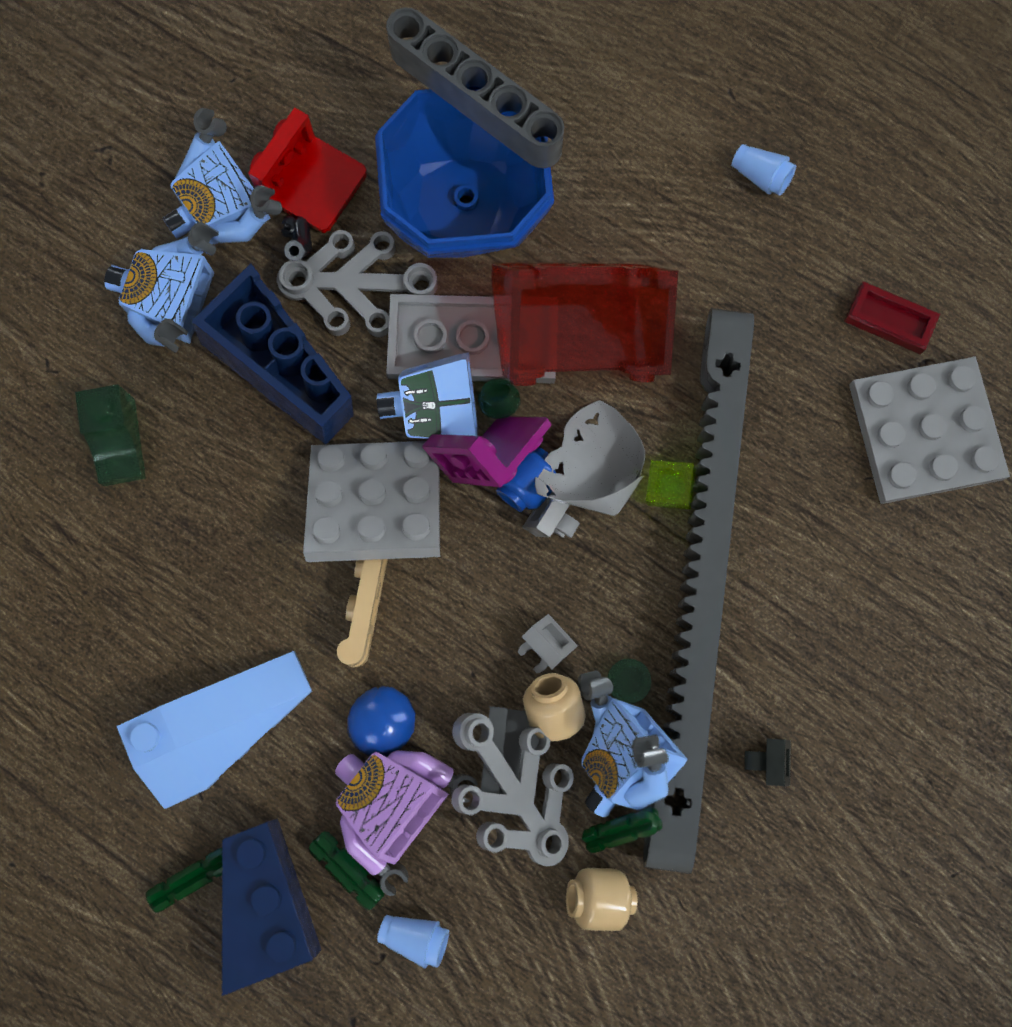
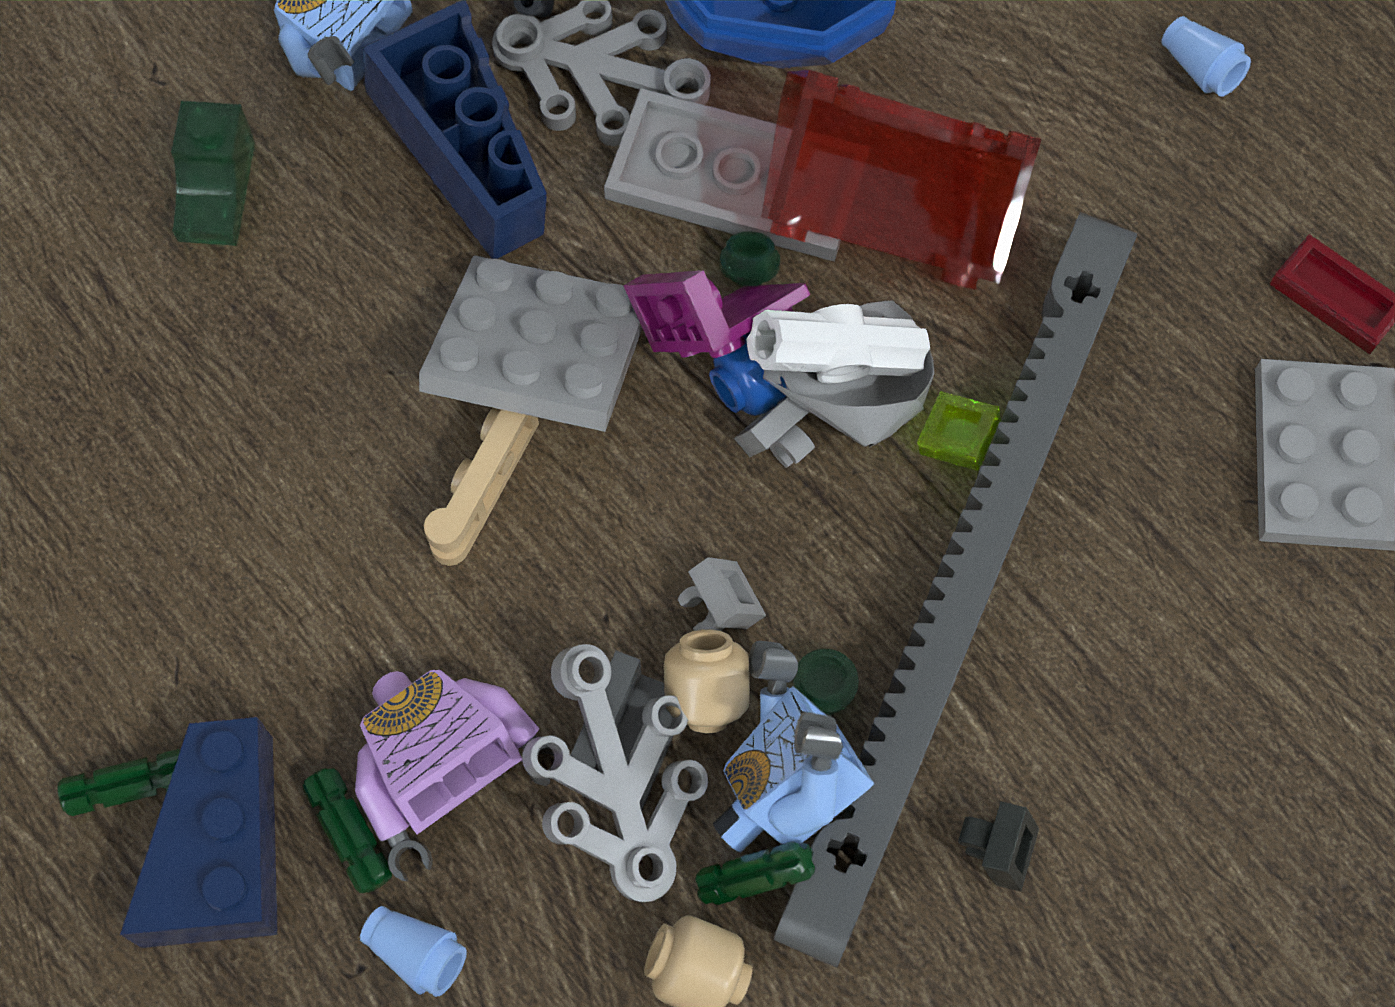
camera: 15 degrees right, 10 degrees down
(199, 736) = (203, 587): light blue wedge -> none
(381, 721) = (458, 636): blue hair -> none
(434, 399) = (657, 227): torso -> none
(577, 452) = (837, 343): none -> white piece

